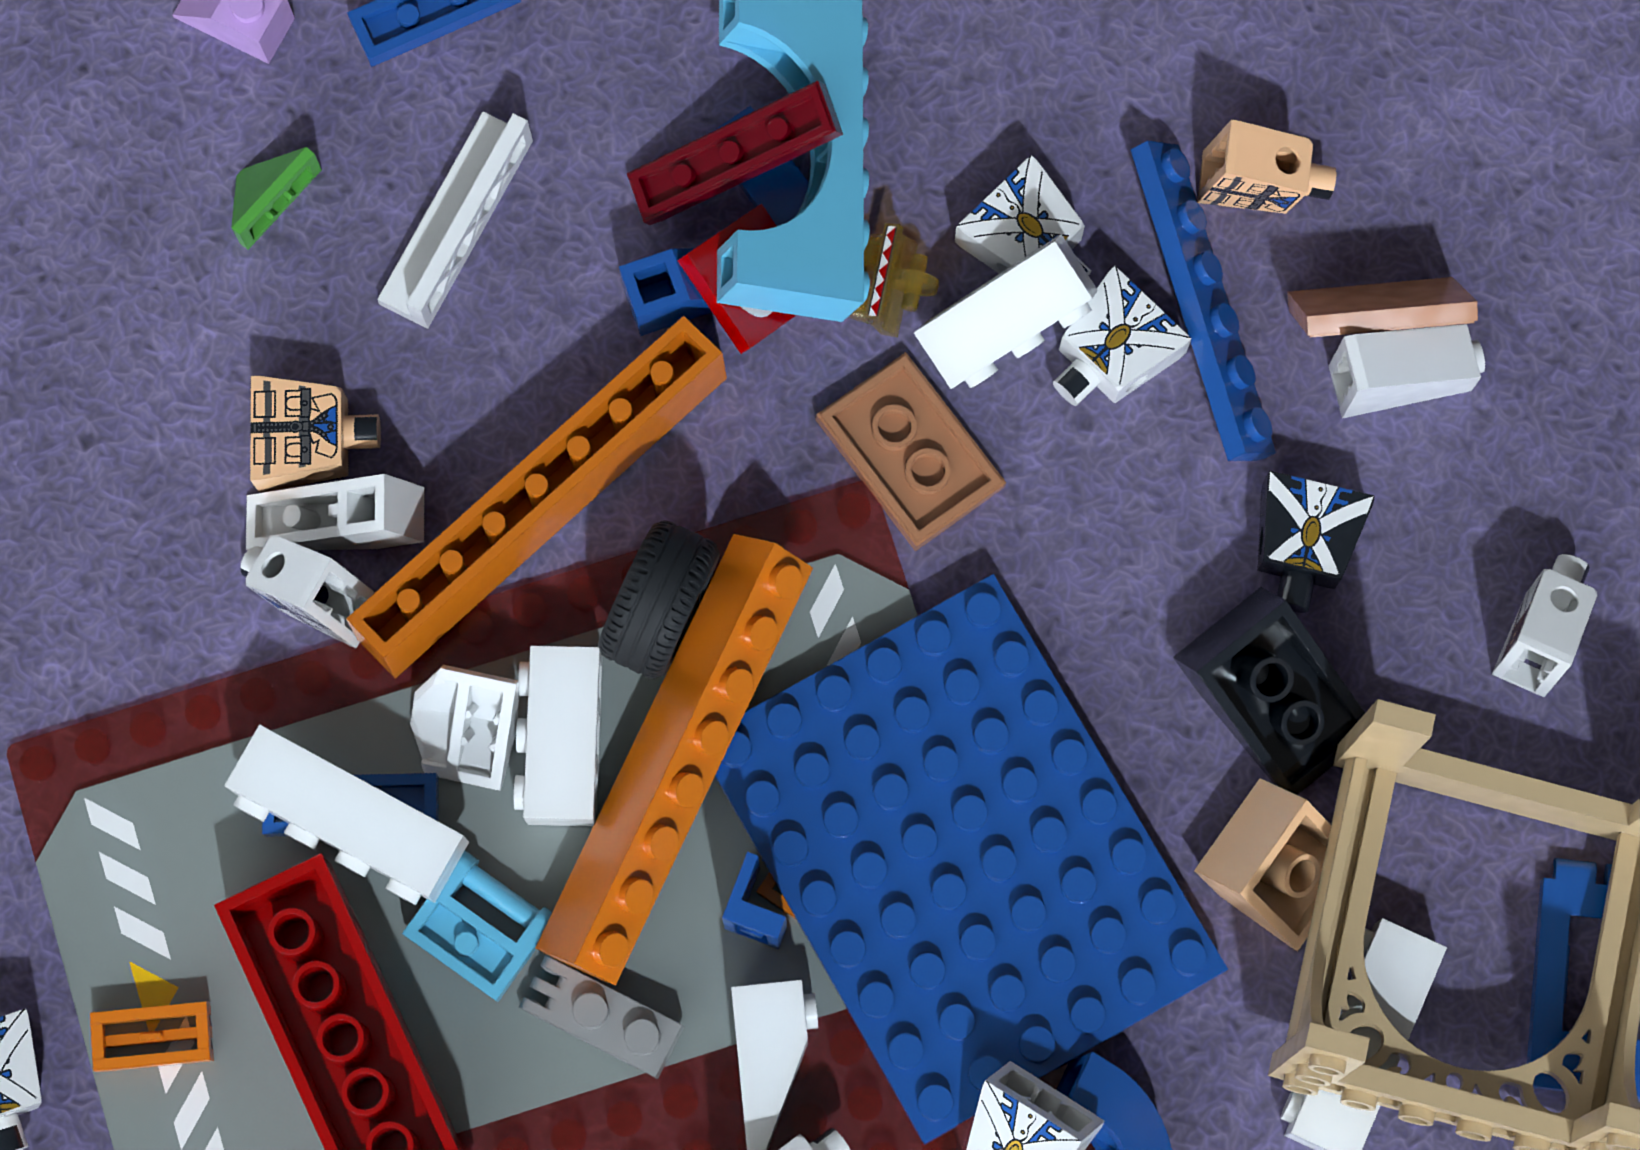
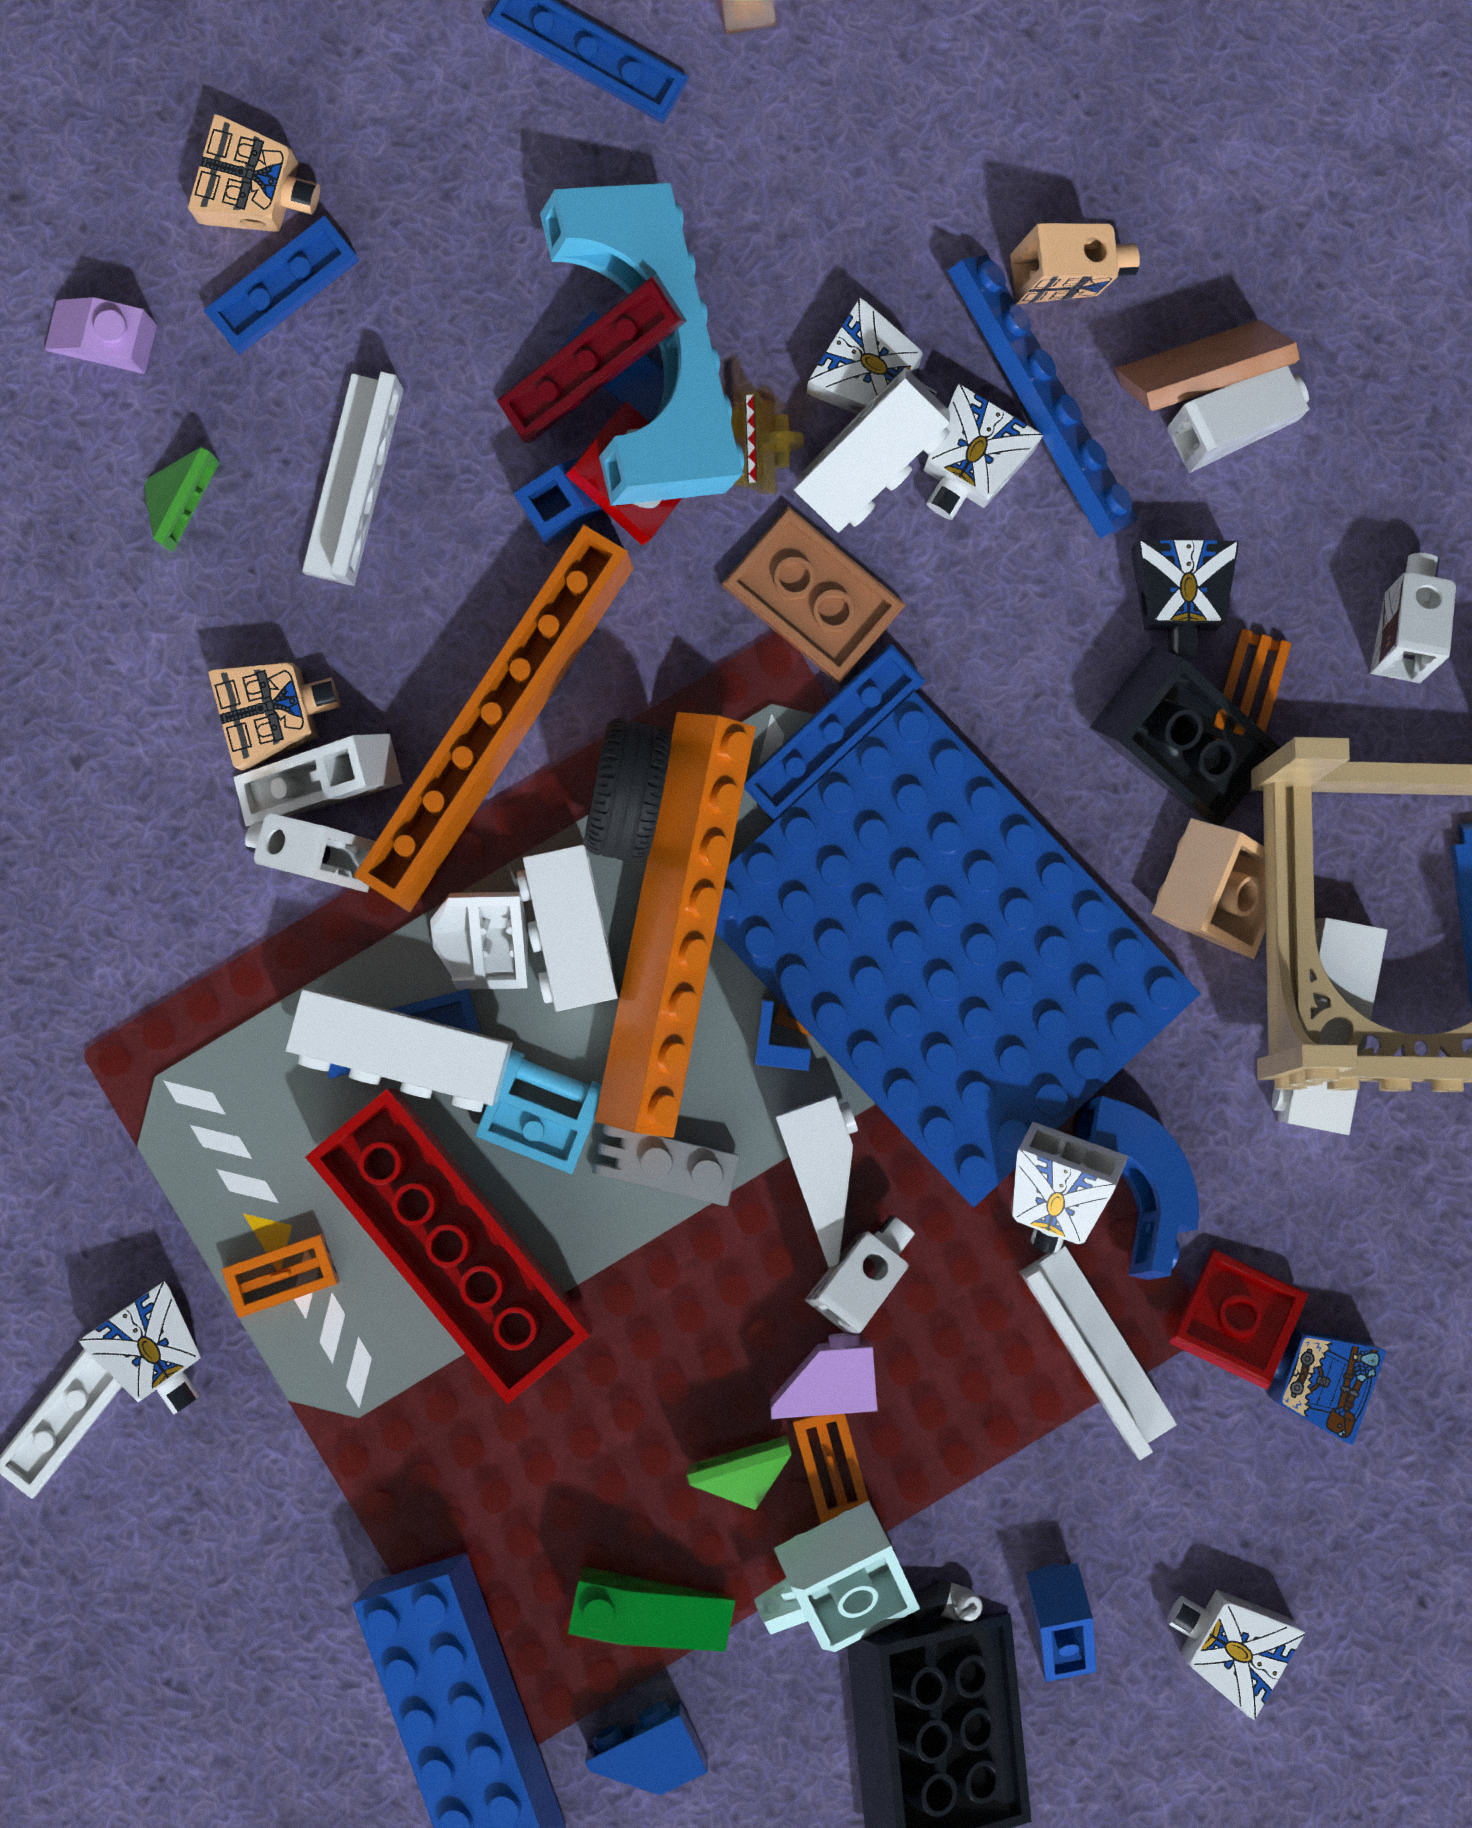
camera: 15 degrees left, 10 degrees up
(895, 596) = (833, 732): none -> blue tile
(1382, 614) = (1263, 644): none -> orange tile

